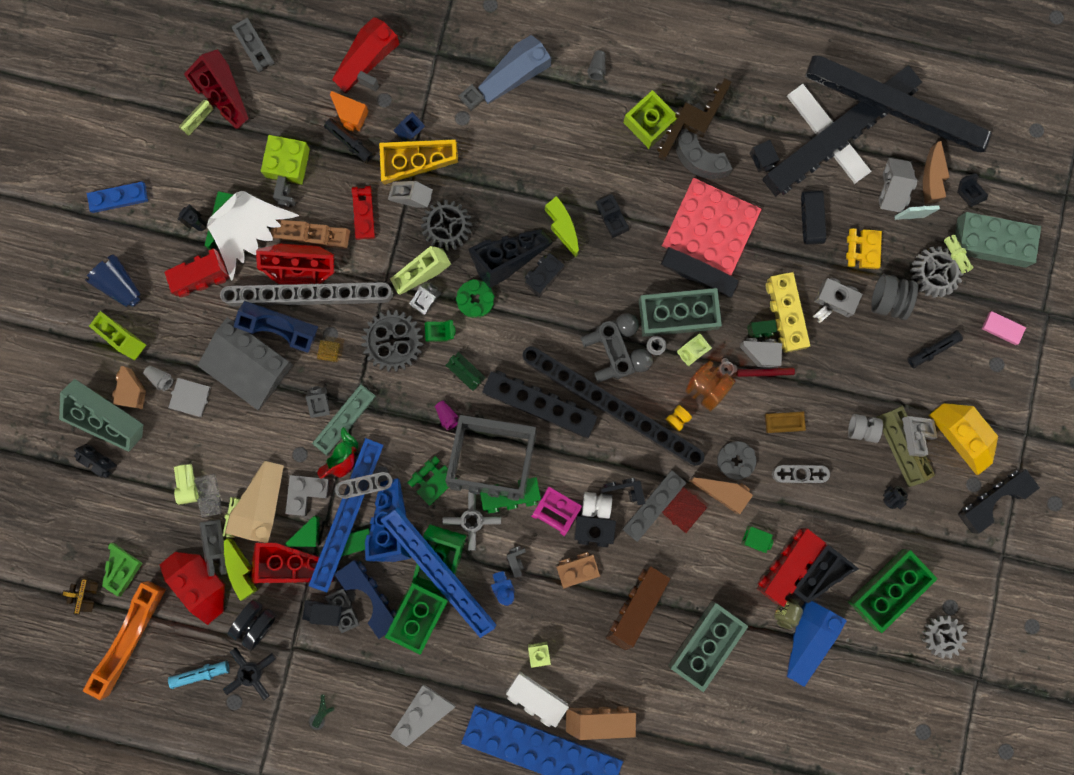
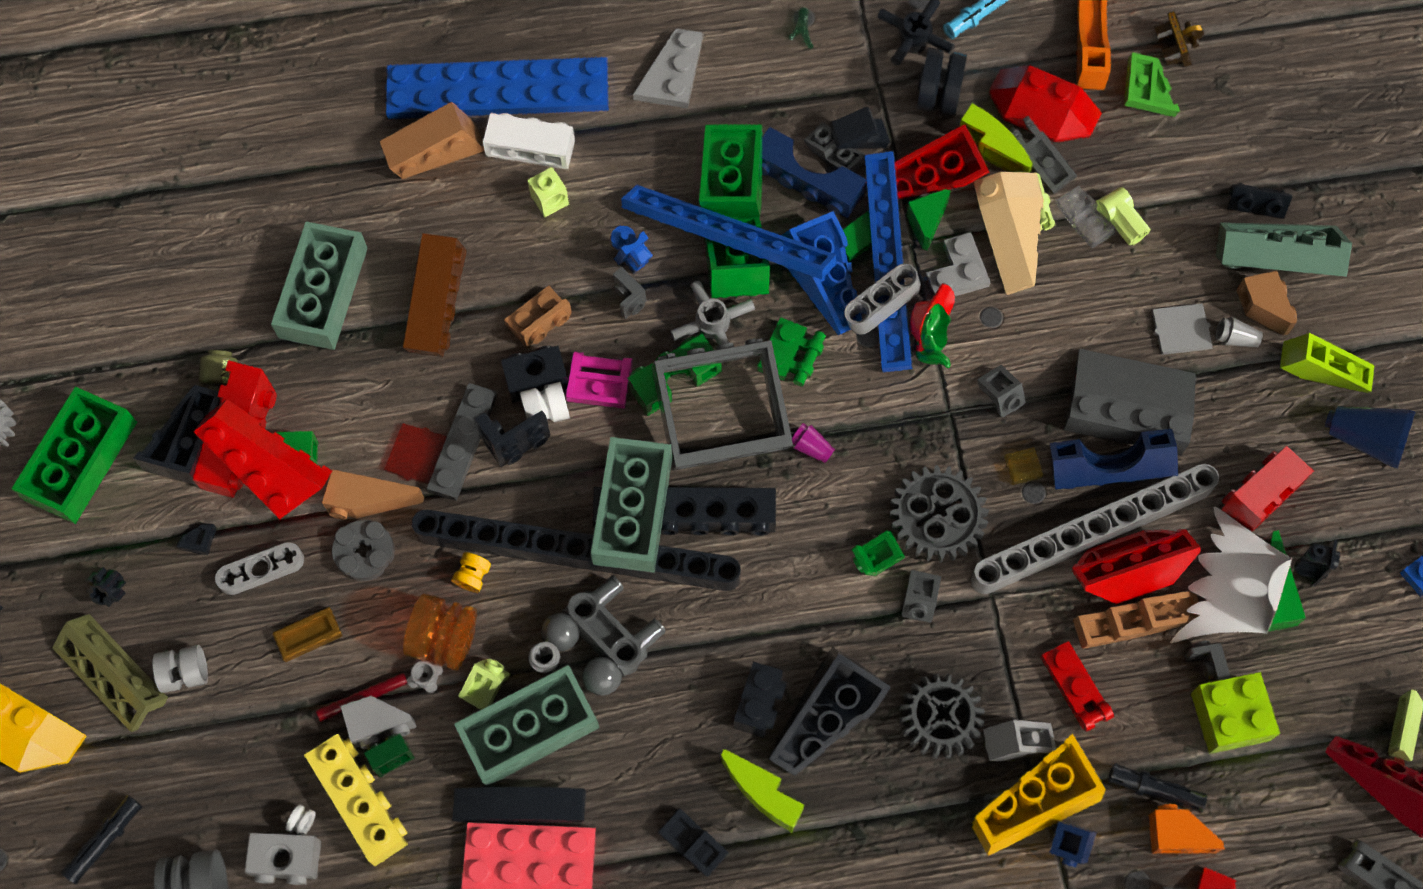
camera: 165 degrees right, 15 degrees down
(344, 418) = (953, 384): sand green tile -> none
(421, 269) = (947, 632): yellowish green slope -> none
(465, 371) = (813, 516): dark green hinge -> none
(476, 309) = (862, 616): green plate -> none
(572, 410) = (632, 504): none -> sand green brick
(782, 533) = (261, 459): none -> red wedge
(812, 641) = (171, 353): blue wedge -> none
(831, 508) = (198, 540): none -> black tile
(916, 432) = (100, 689): light grey plate -> none

